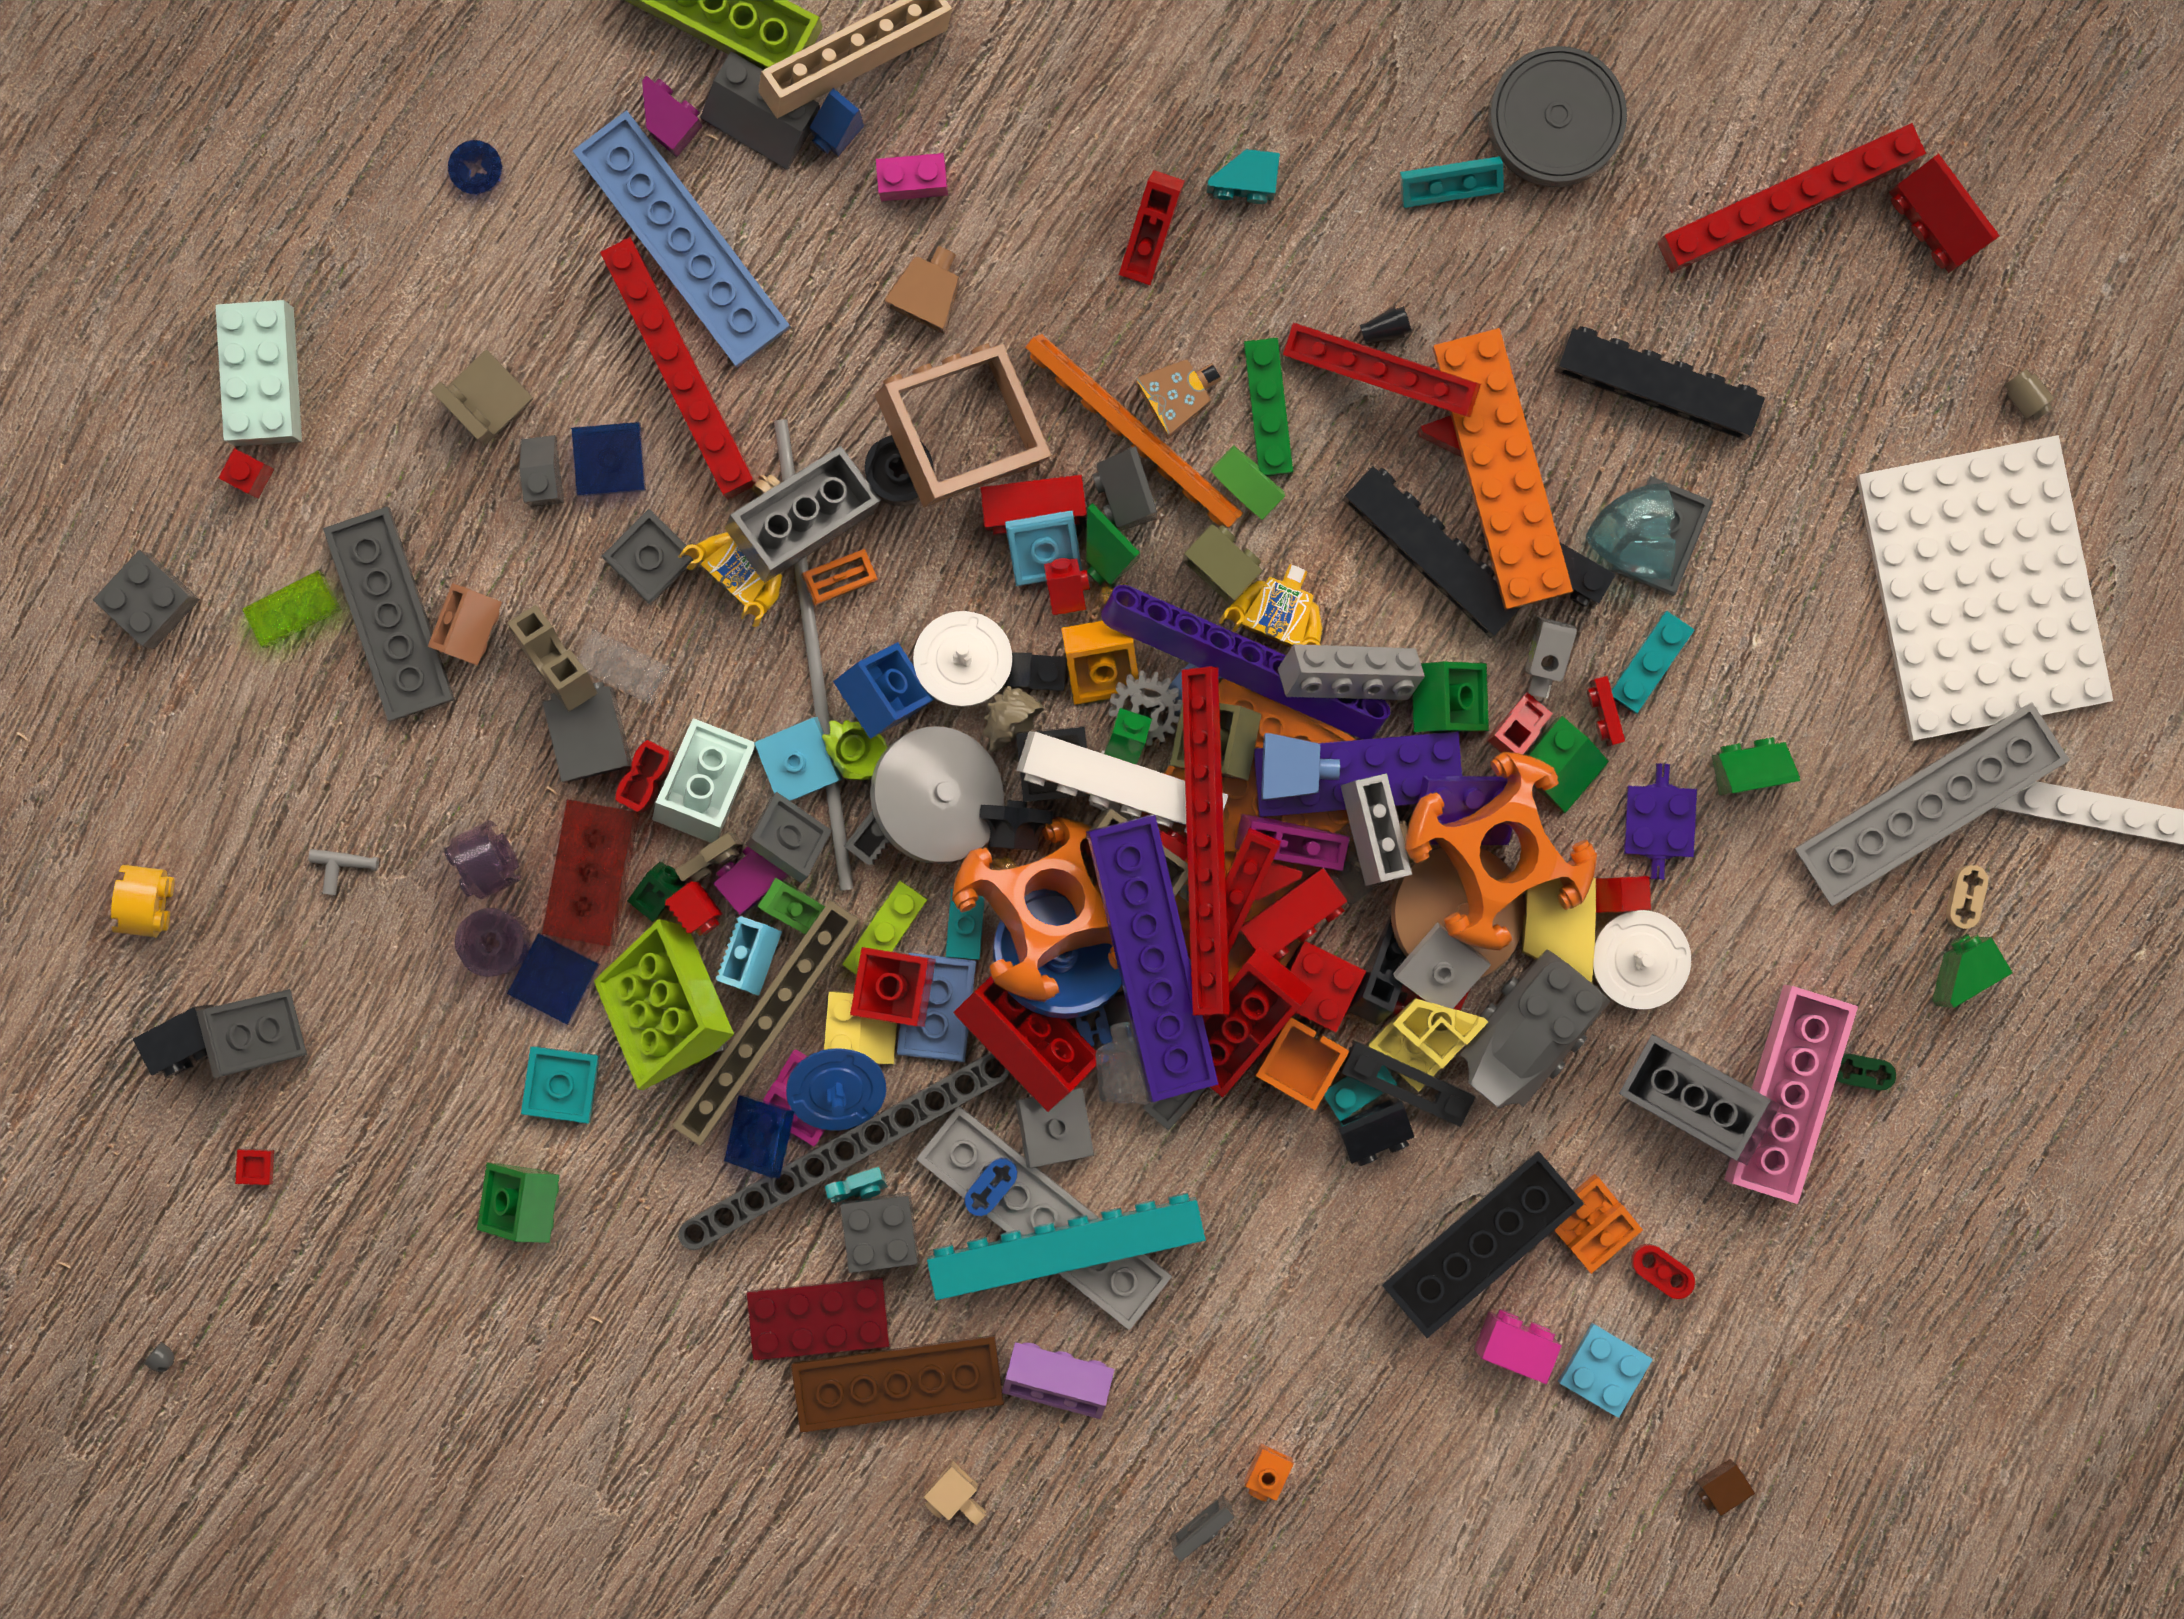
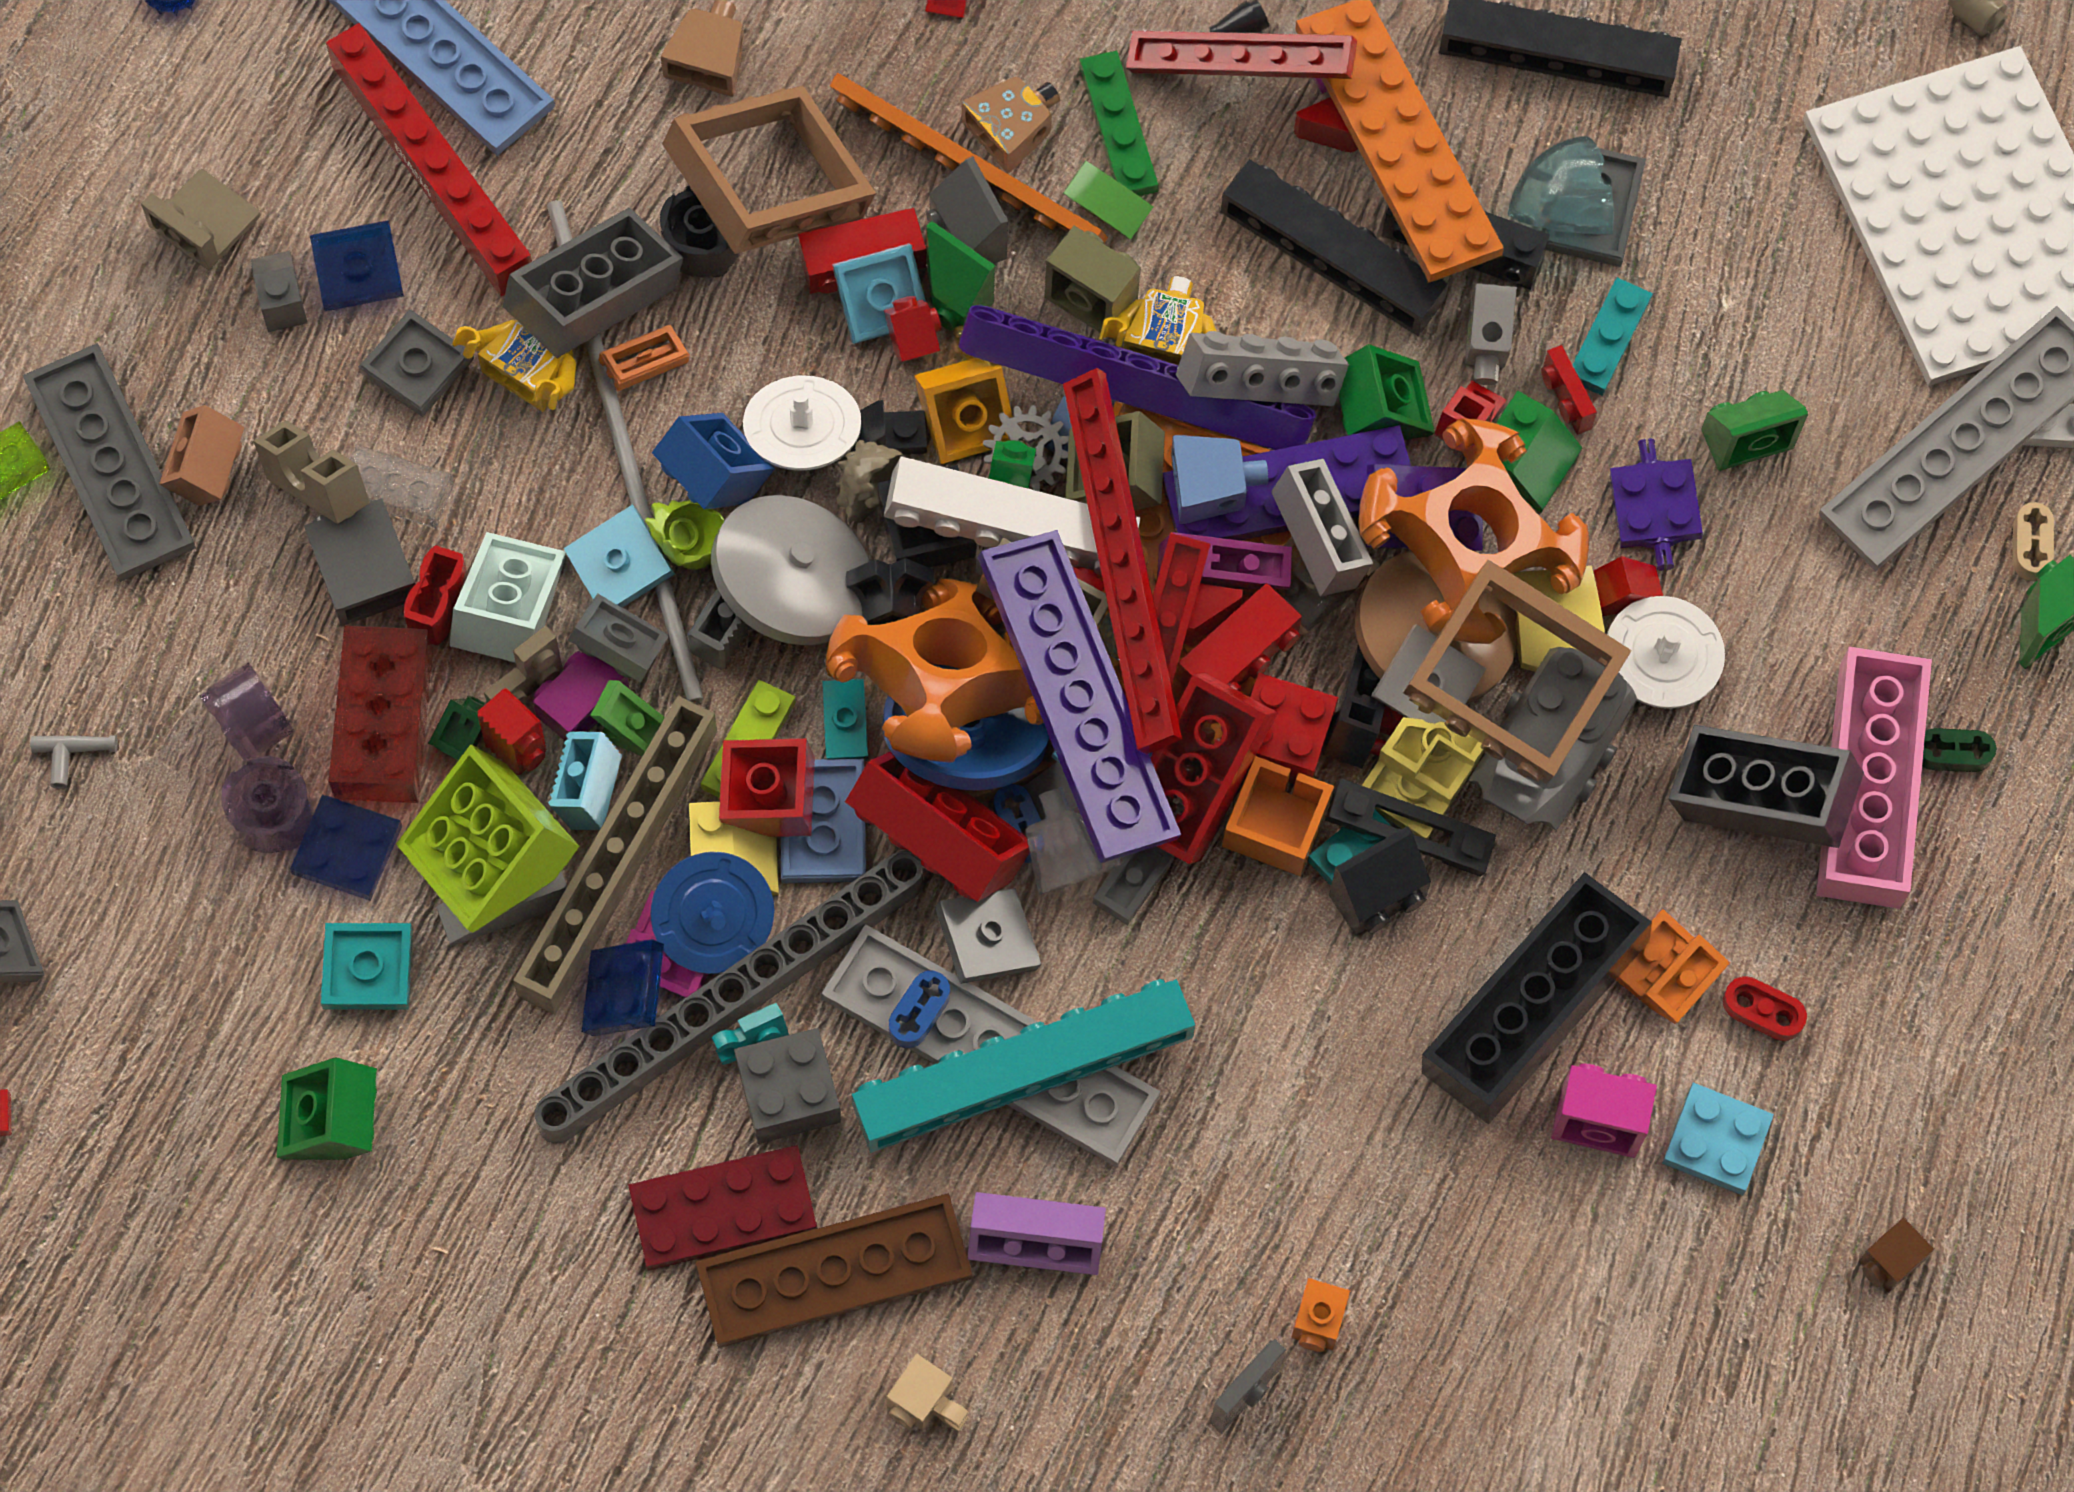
camera: 10 degrees left, 20 degrees down
(1466, 948) = (1551, 617): none -> medium nougat window

